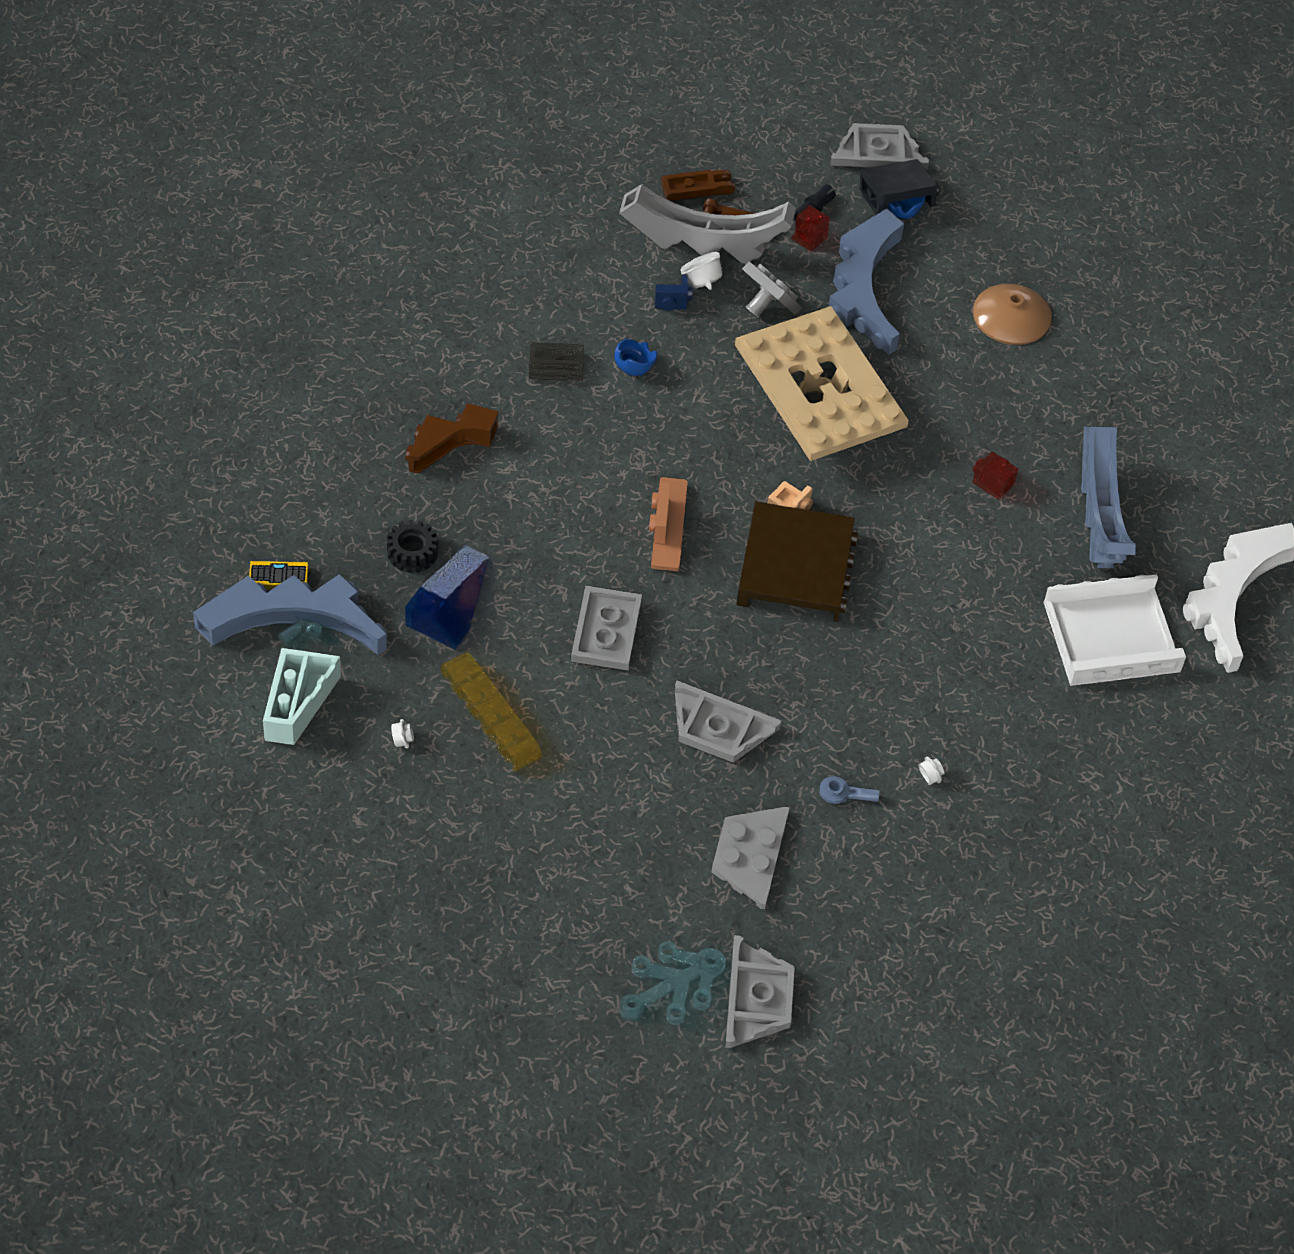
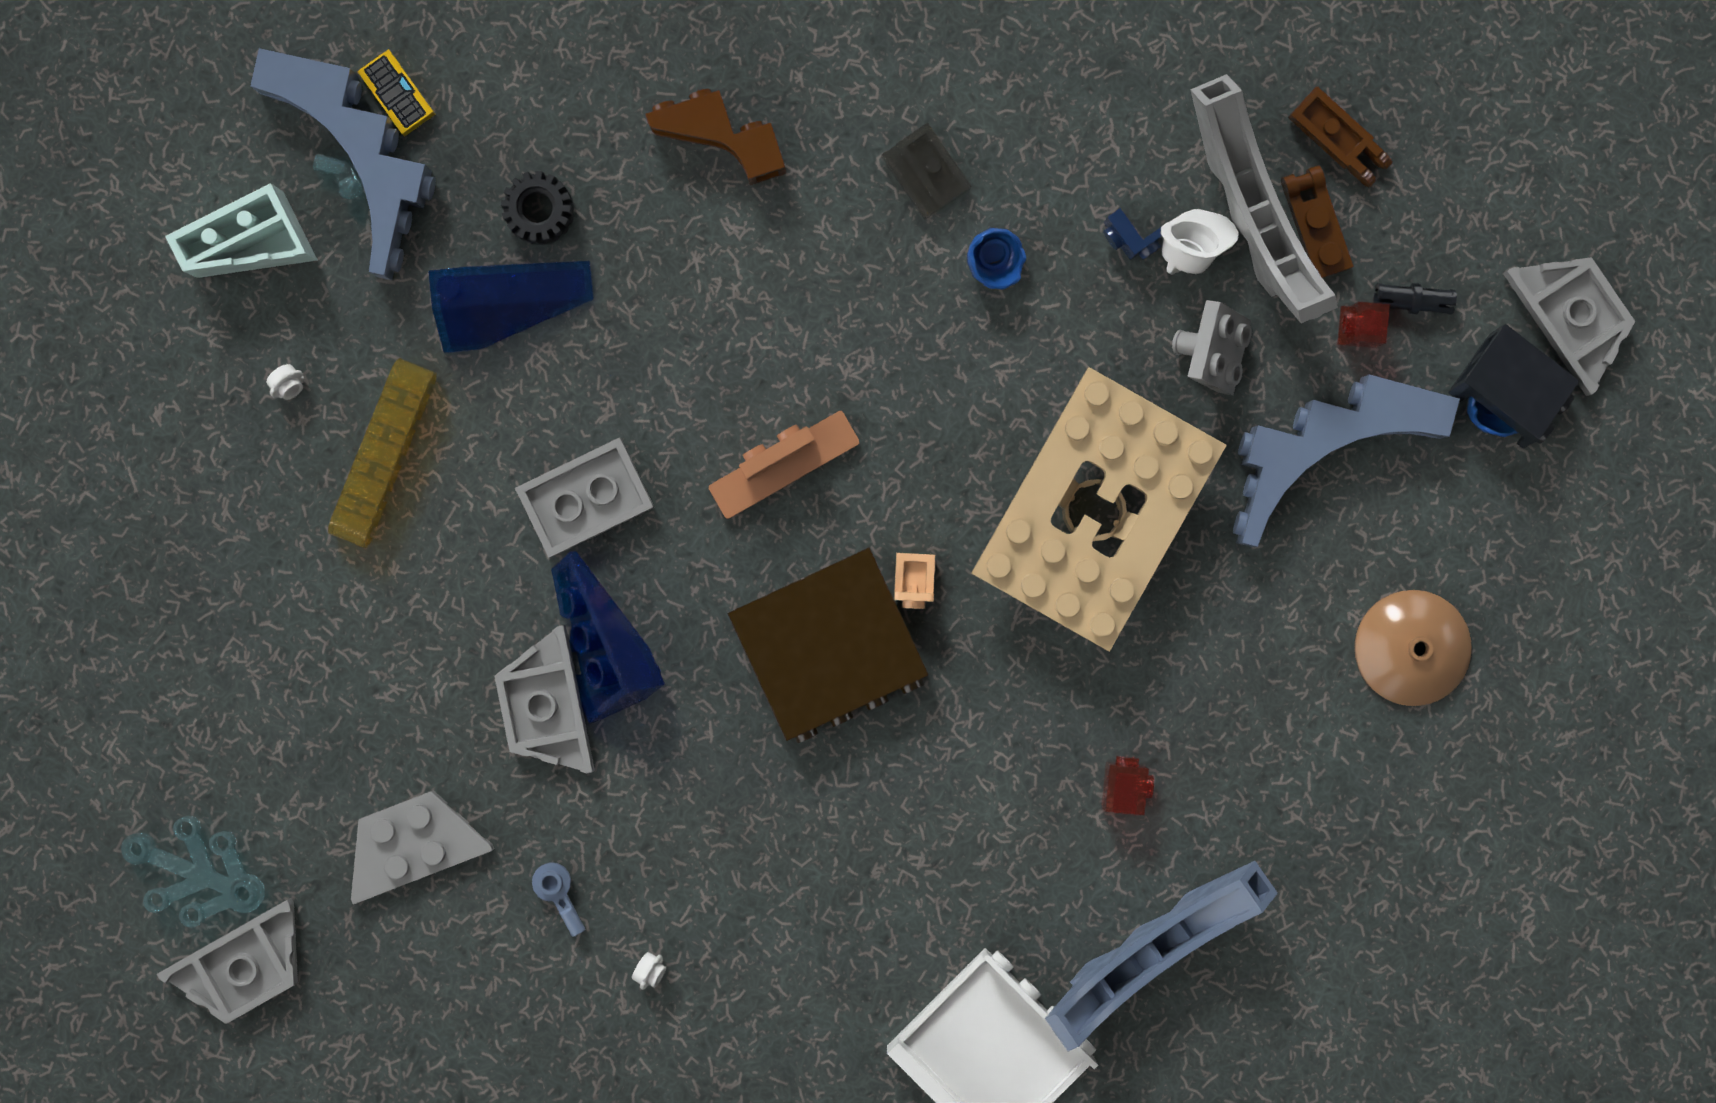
camera: 60 degrees right, 35 degrees up
(714, 669) = (610, 652): none -> clear blue wedge

